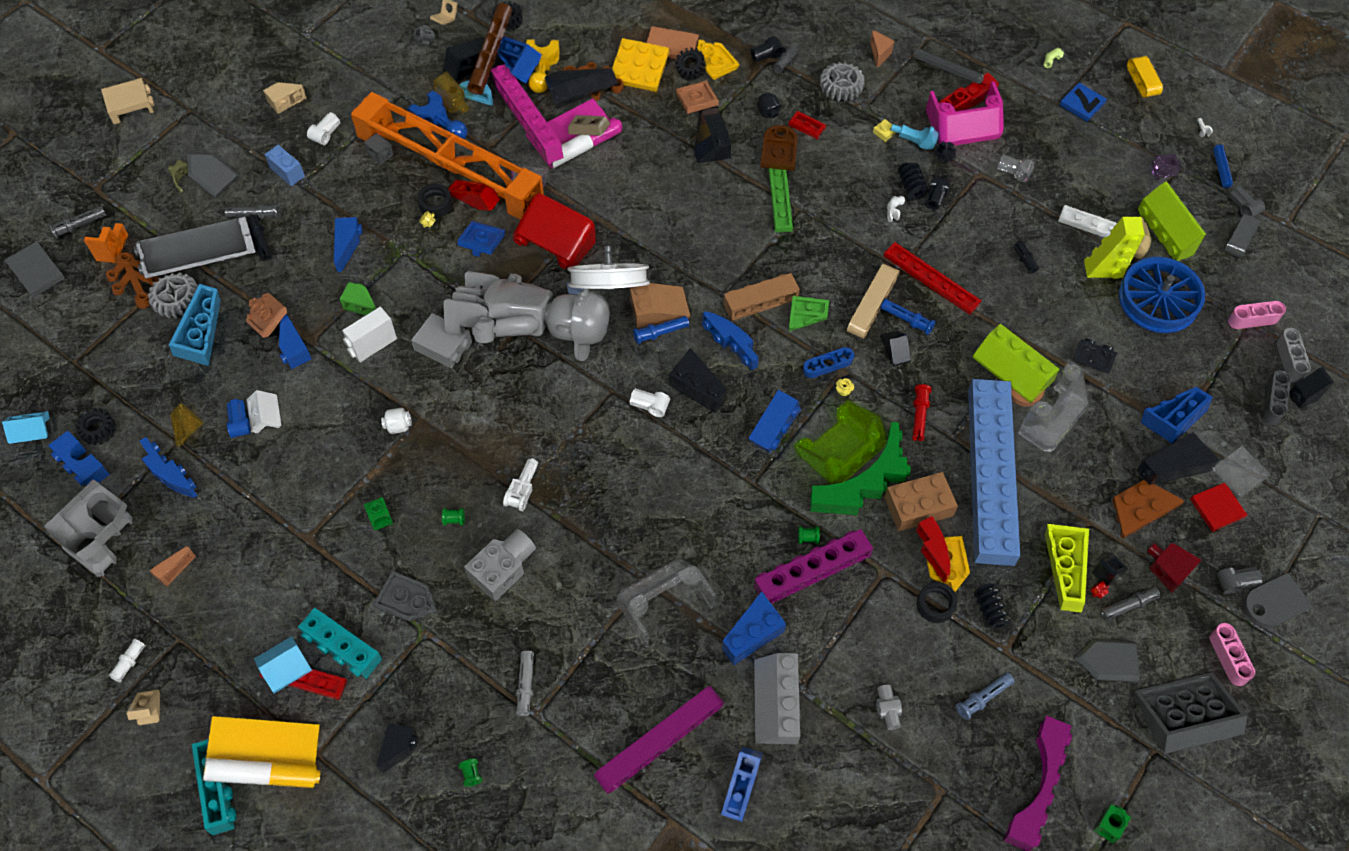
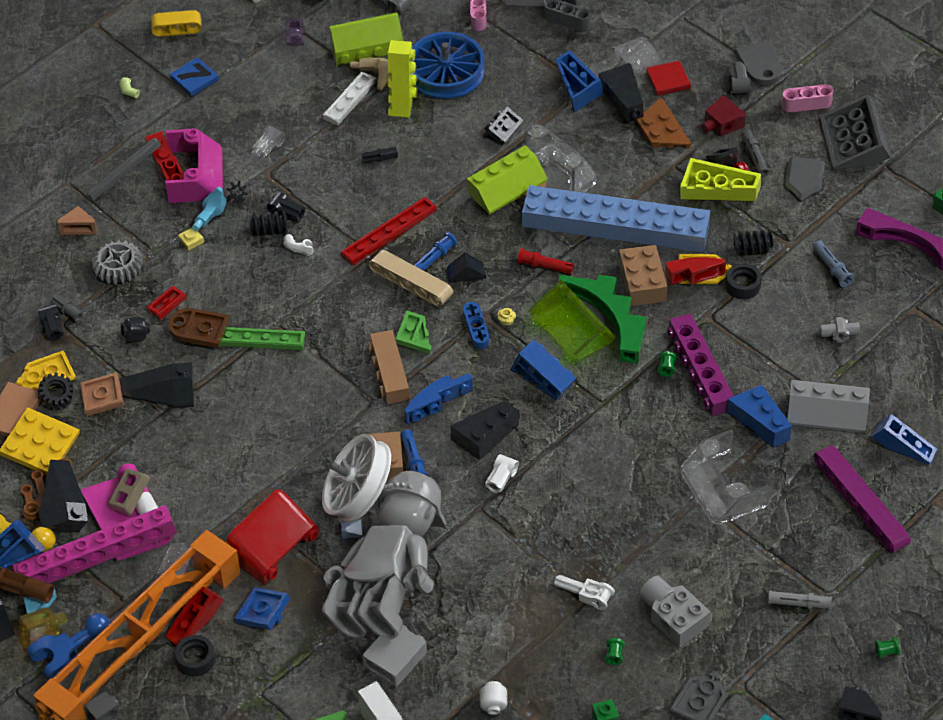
camera: 80 degrees left, 10 degrees down
(427, 219) = (217, 663): light yellow plate -> none

